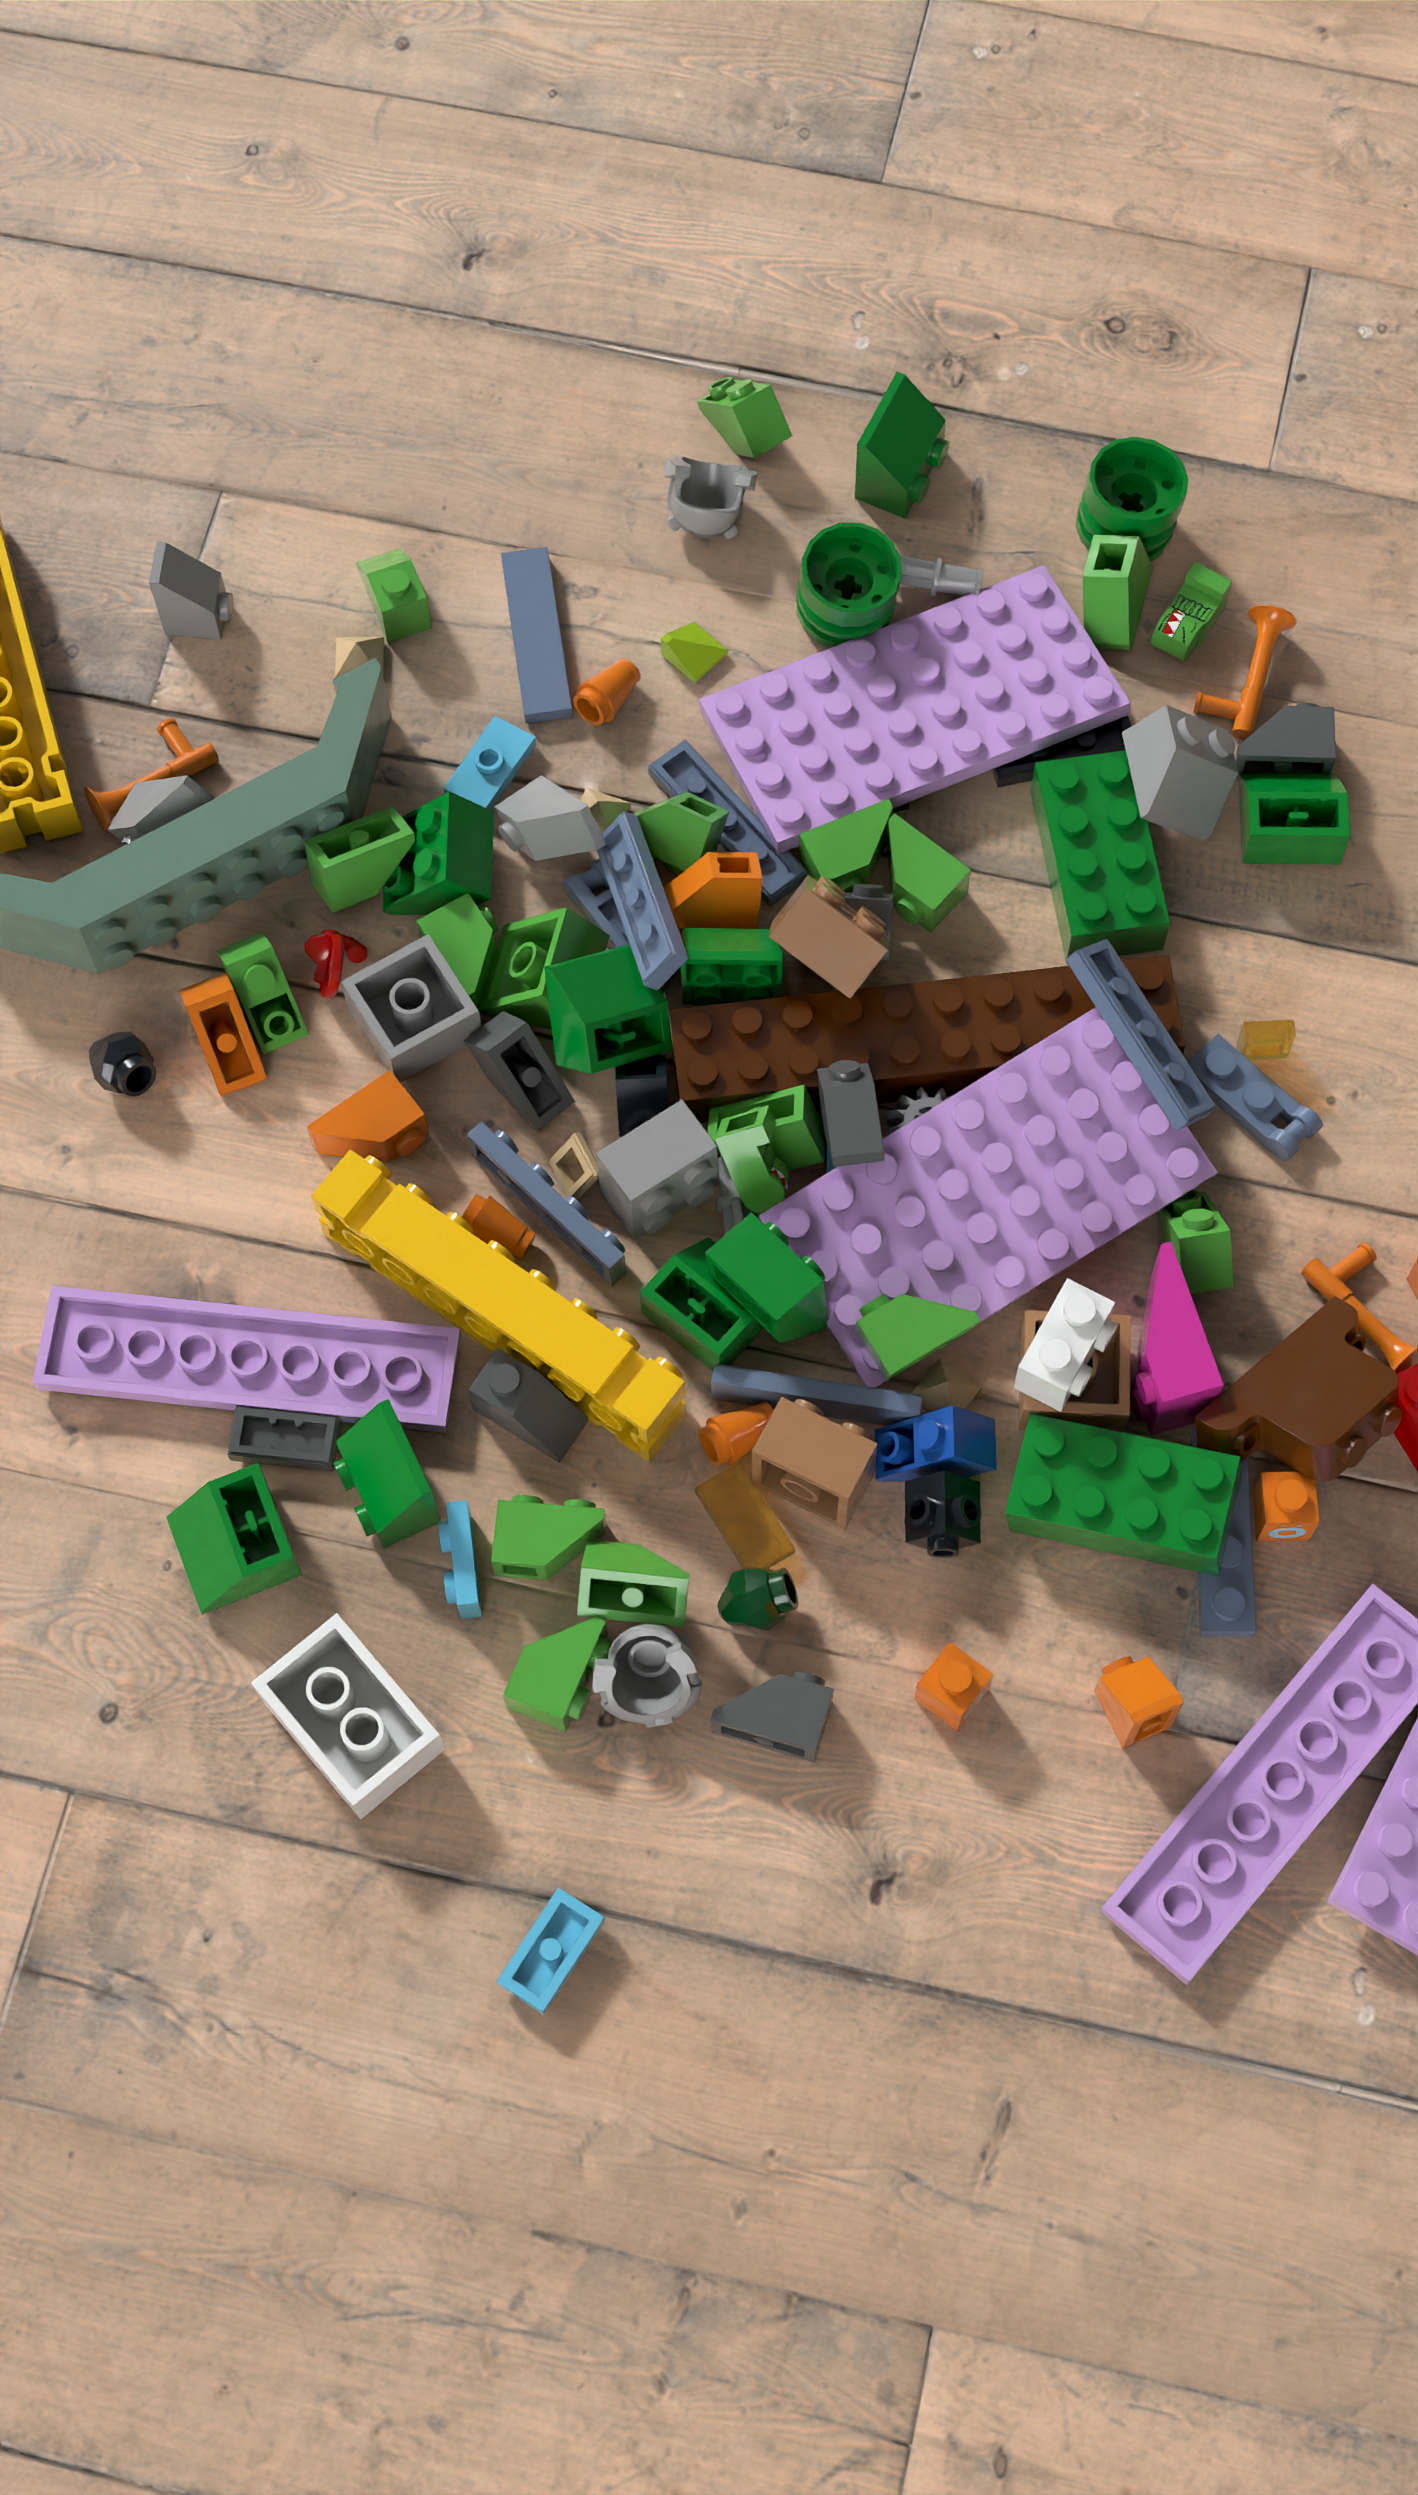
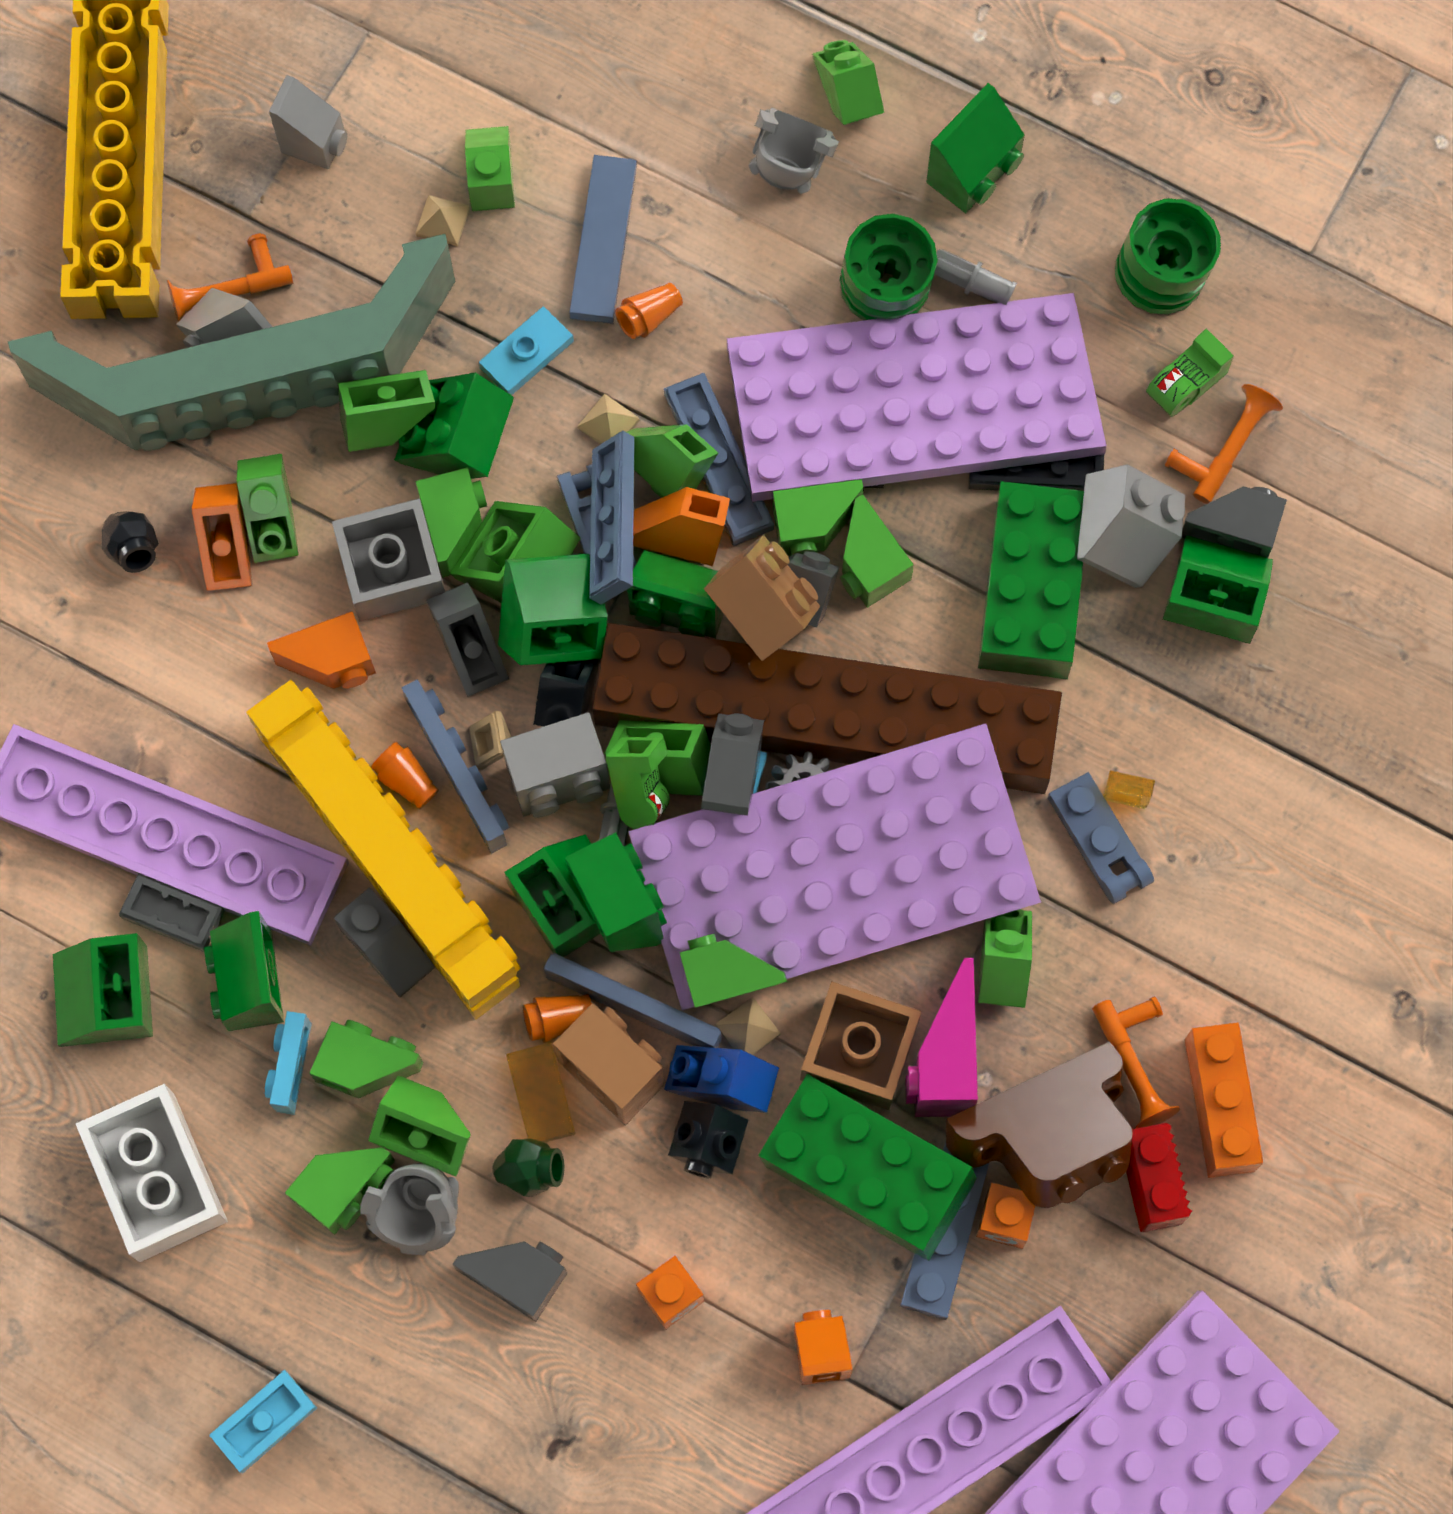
camera: 15 degrees right, 5 degrees up
(328, 953) = (333, 484): red piece -> none
(547, 822) = (555, 419): light grey slope -> none
(692, 650) = (736, 290): lime slope -> none
(1064, 1344) = (850, 1025): white brick -> none
(1115, 590) = (1126, 335): bright green slope -> none
(1141, 1034) = (1009, 761): sand blue tile -> none

